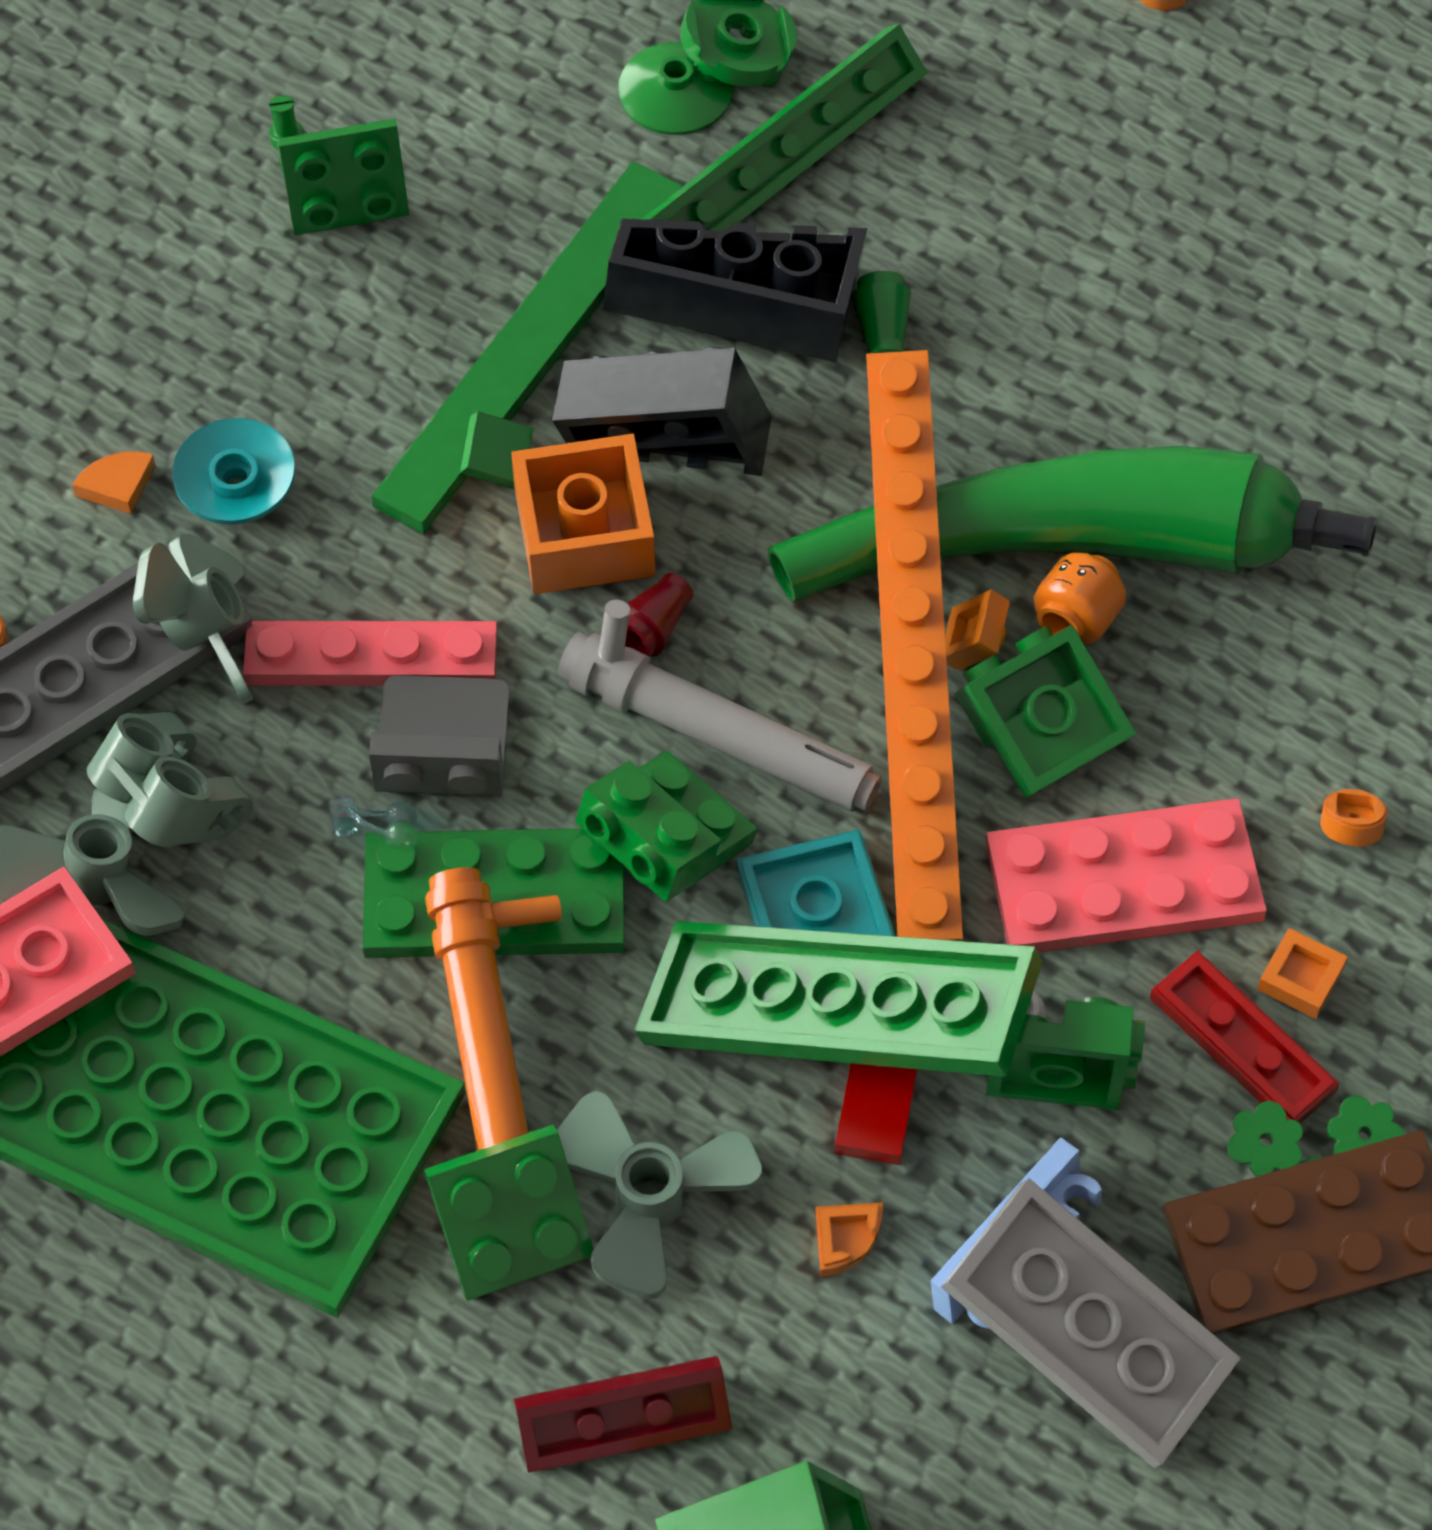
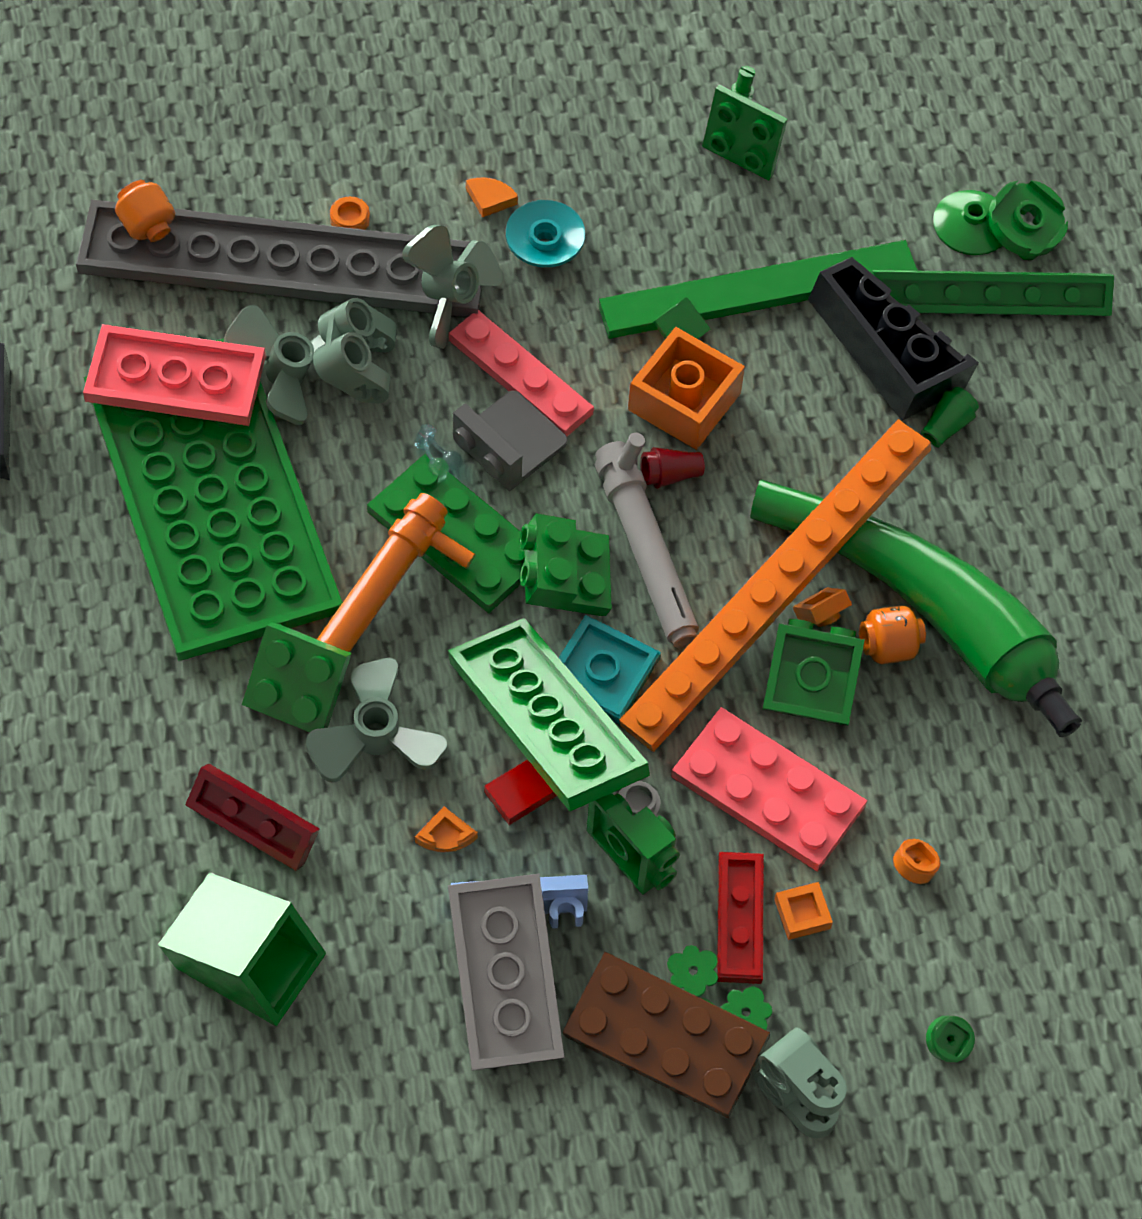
camera: 40 degrees right, 0 degrees up
(671, 402) = (786, 370): wedge -> none

